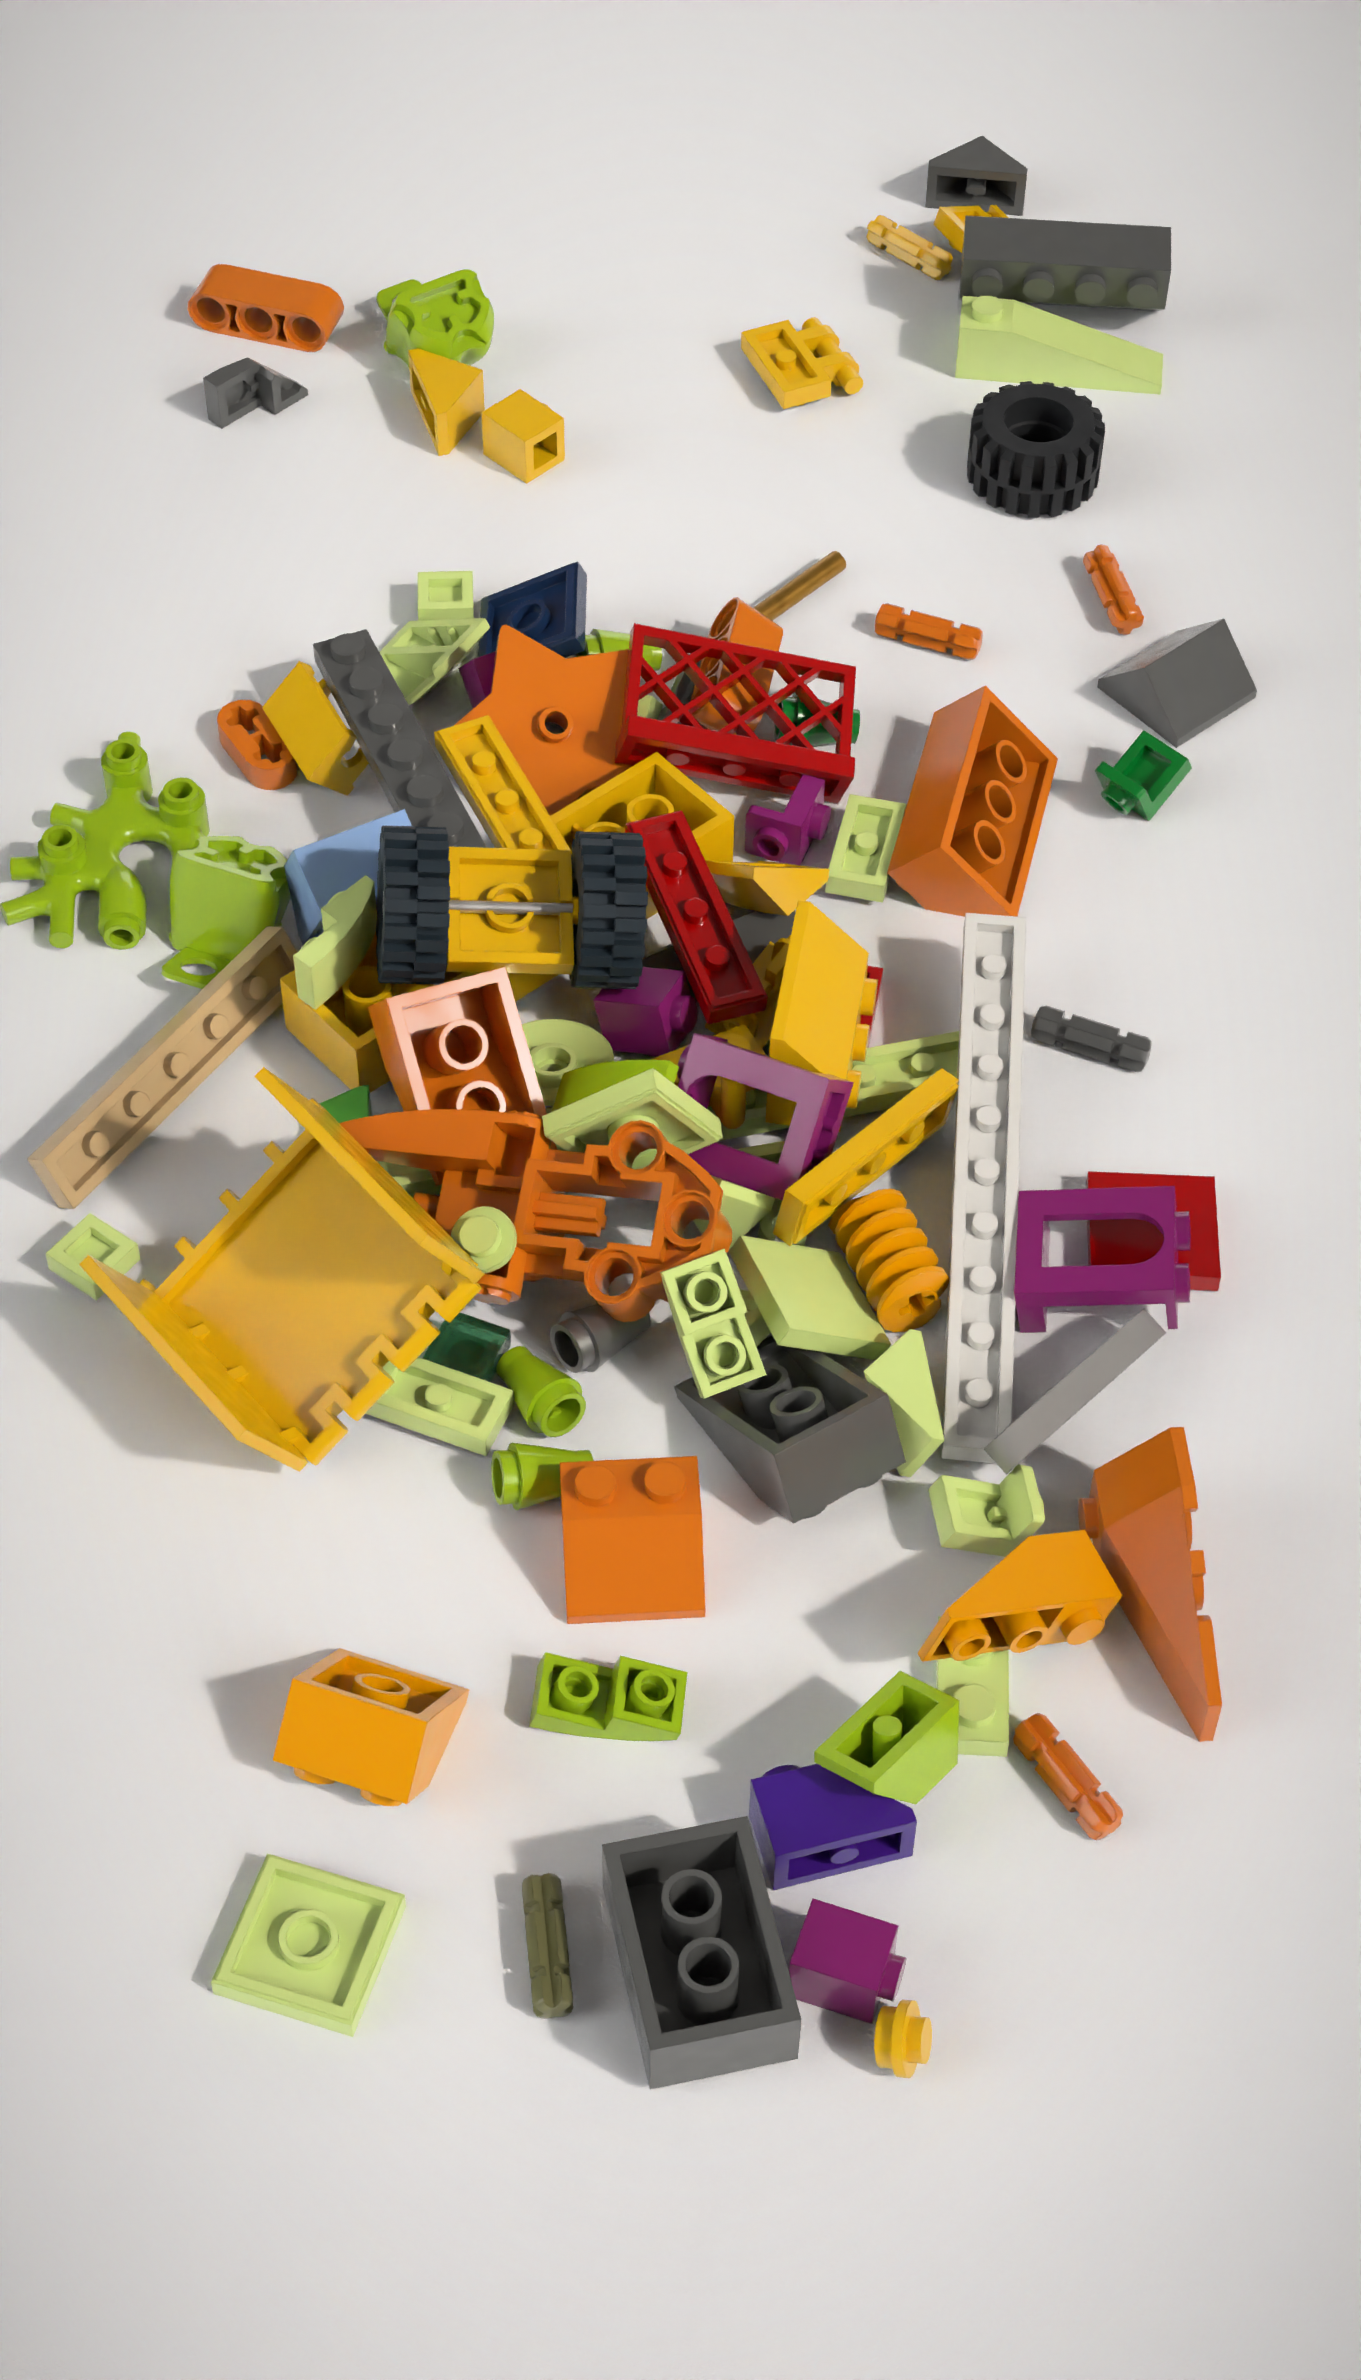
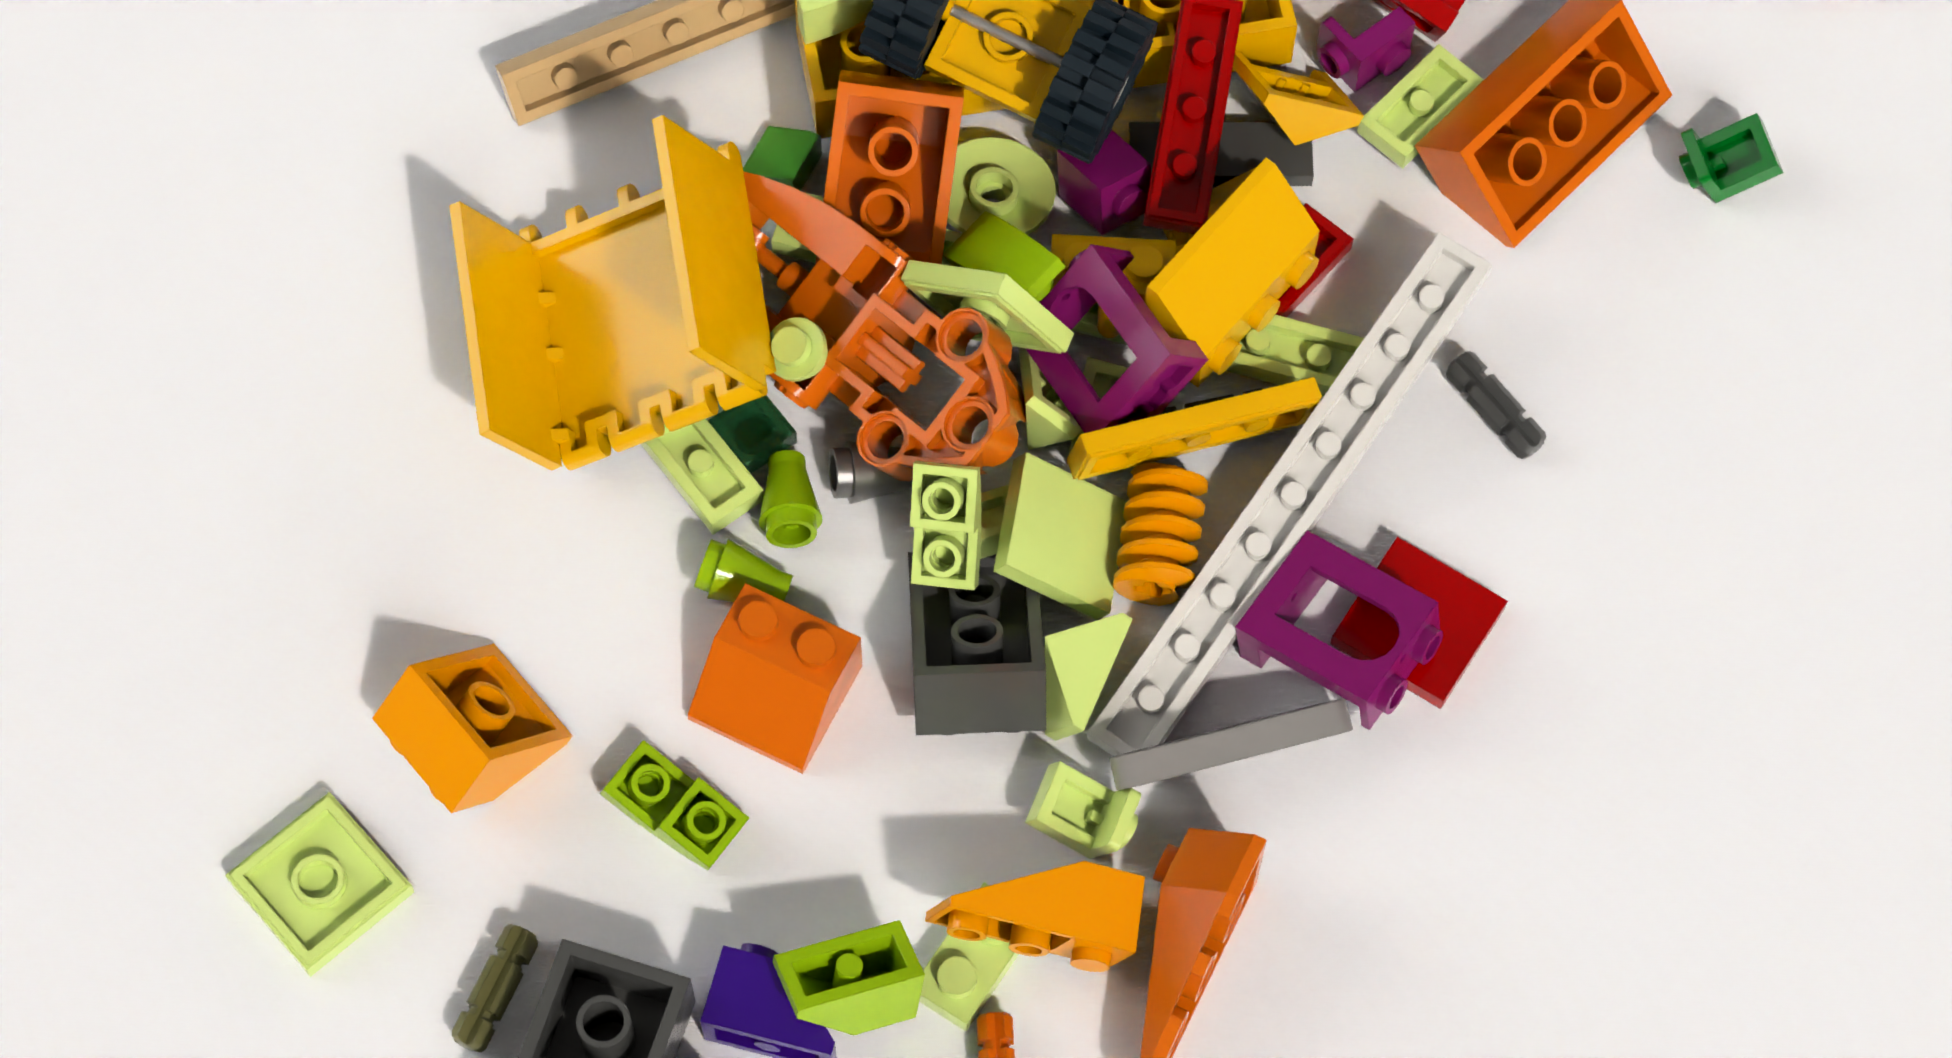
camera: 30 degrees right, 15 degrees up
(99, 1241) = (504, 181): yellowish green plate -> none
(1183, 682) = (1847, 72): dark grey slope -> none

